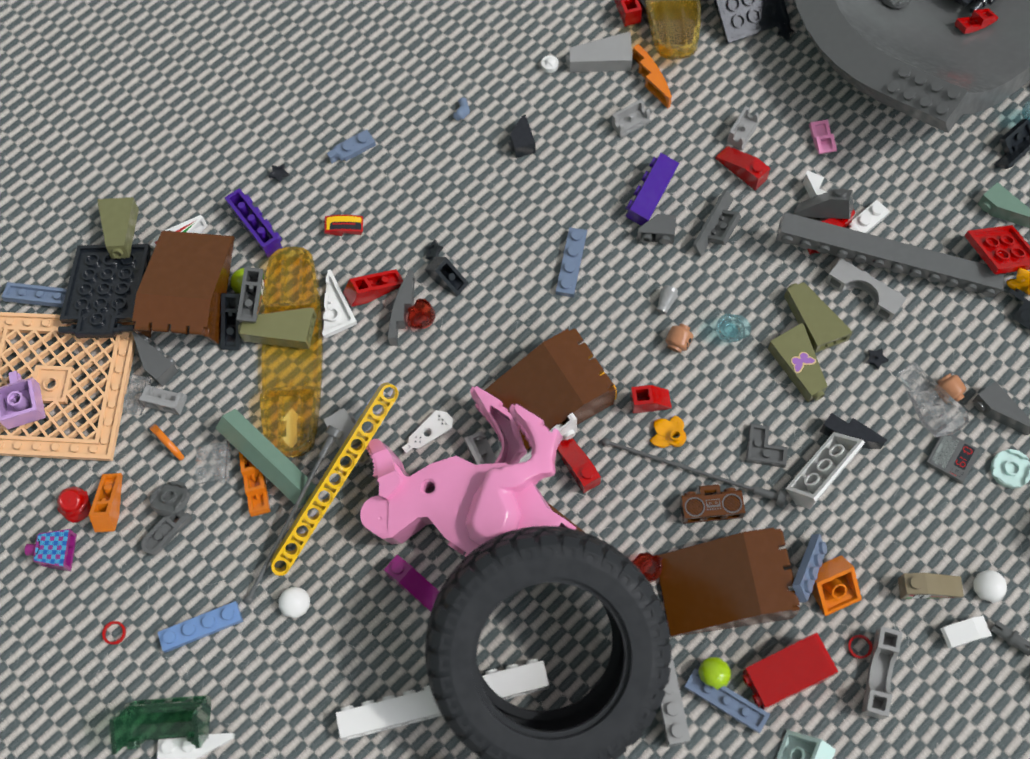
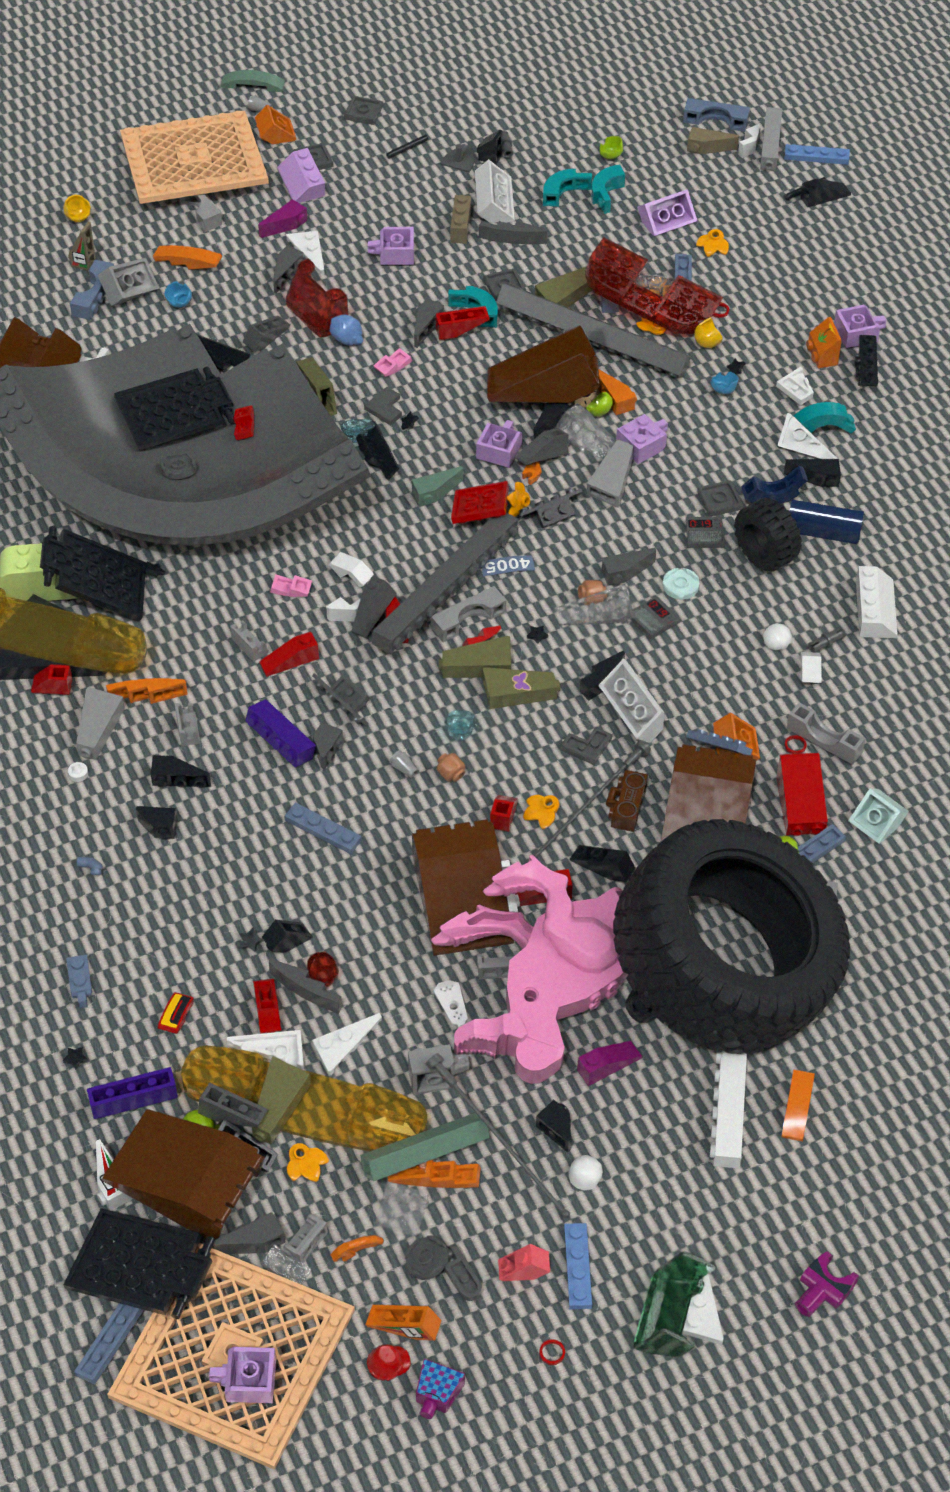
camera: 75 degrees left, 15 degrees down
(118, 224) = (62, 1231): olive slope -> none
(184, 581) = (524, 1264): none -> coral slope
(233, 376) = (306, 1165): none -> light orange plate
(331, 561) = (555, 1123): none -> black slope
(333, 487) = (480, 1080): yellow beam -> none
(356, 355) = (337, 1045): none -> white wing
(576, 125) = (176, 772): none -> black slope
(630, 507) = (609, 863): none -> black slope
(846, 313) = (484, 635): none -> red slope
(867, 175) = (355, 568): none -> white slope
(869, 217) = (396, 581): white hinge -> none
(929, 586) = (762, 678): dark tan slope -> none
(948, 304) = (508, 564): none -> sand blue sticker

